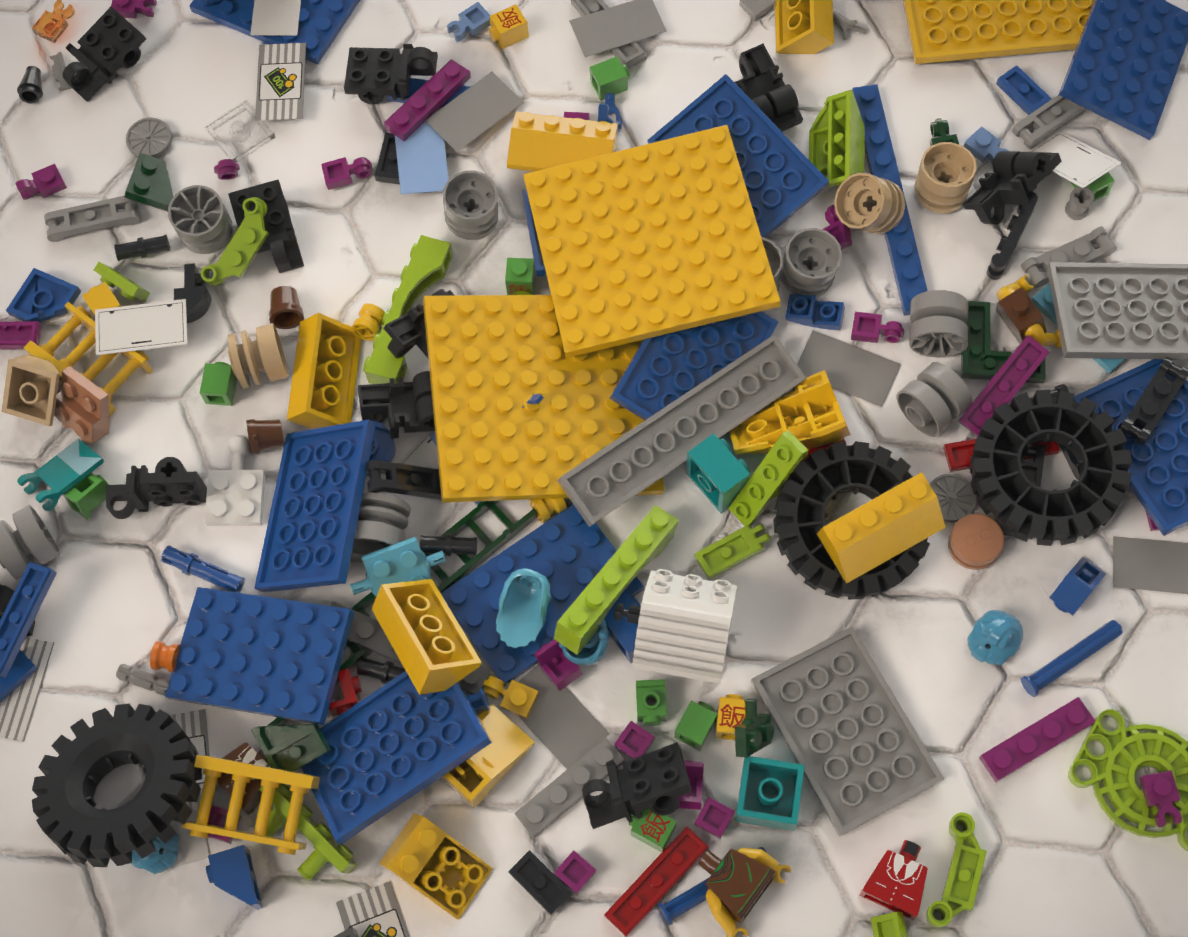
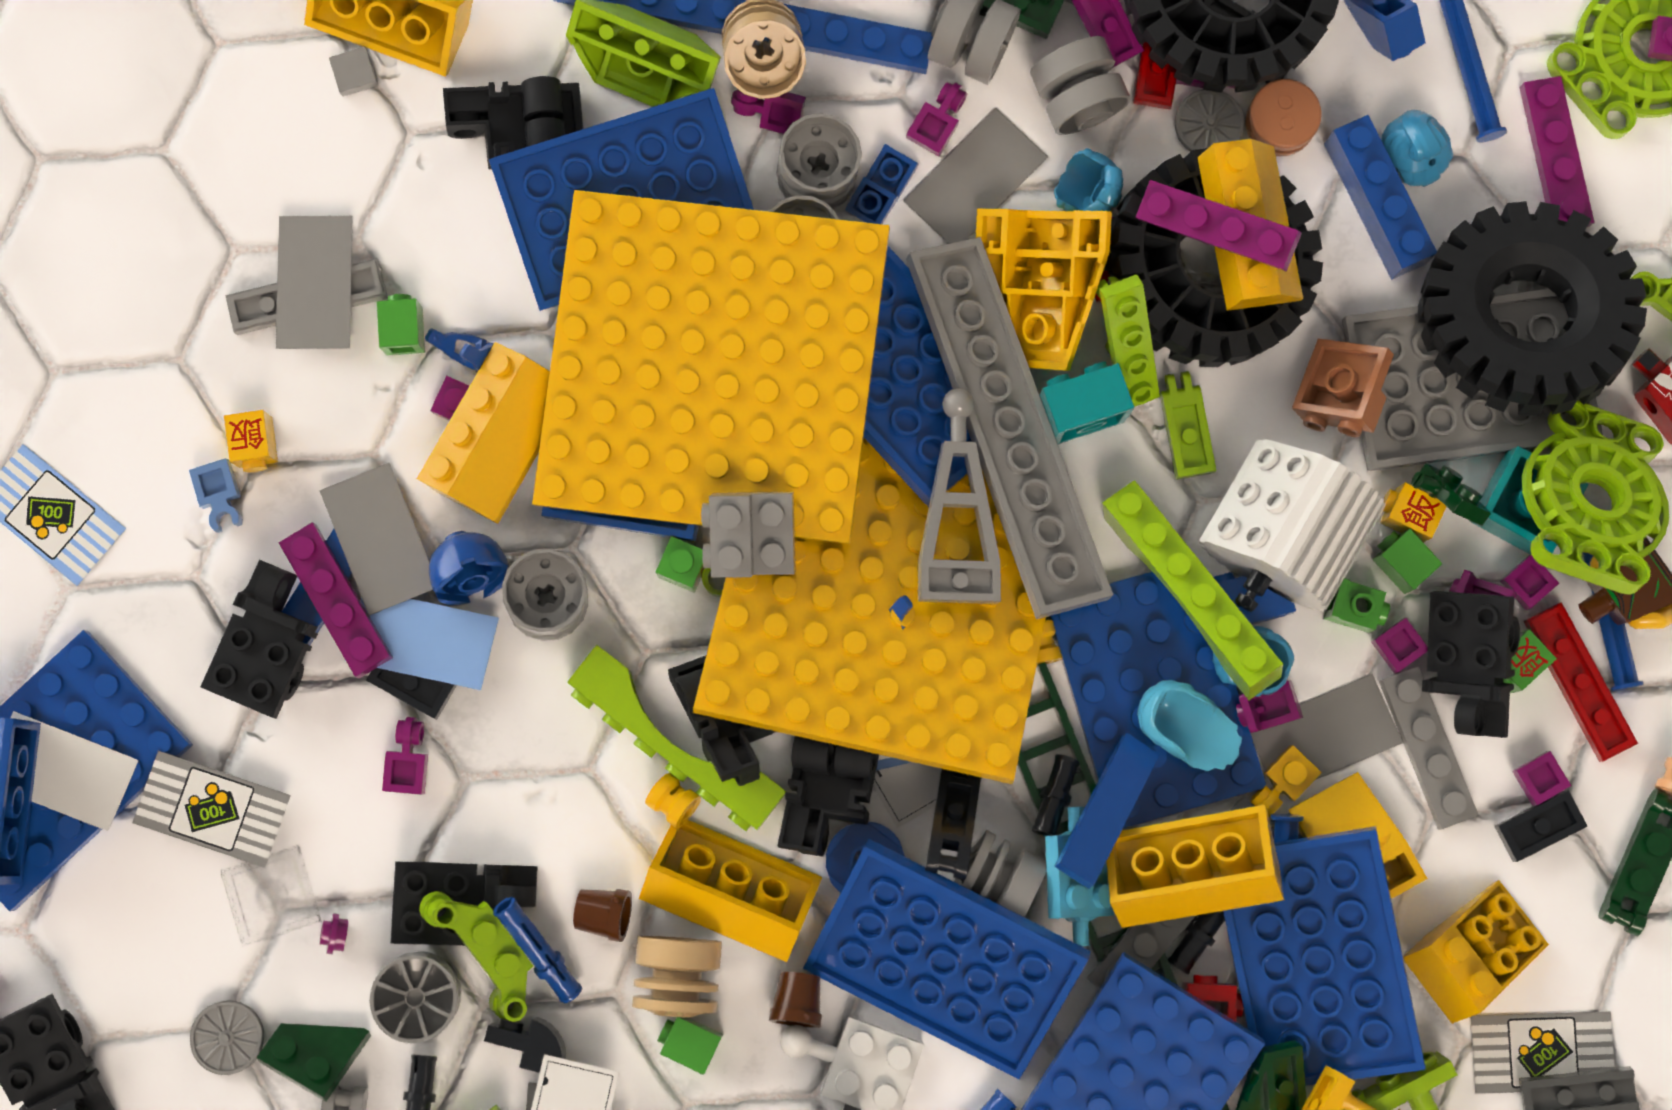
camera: 75 degrees left, 15 degrees up
(233, 301) = (547, 962): none -> blue pin
(446, 570) = (1107, 811): none -> blue tile
(472, 153) = (465, 566): none -> blue cylinder
(546, 290) = (749, 534): none -> light grey plate
(566, 427) = (959, 579): none -> light grey plate
(799, 635) = (1343, 387): none -> nougat plate
(817, 817) = (1574, 524): none -> lime piece
(865, 493) = (1218, 225): none -> magenta plate
(869, 428) = (1089, 183): none -> dark azure hair
(941, 711) = (1553, 253): none -> black tyre
(947, 622) = (1380, 197): none -> blue brick

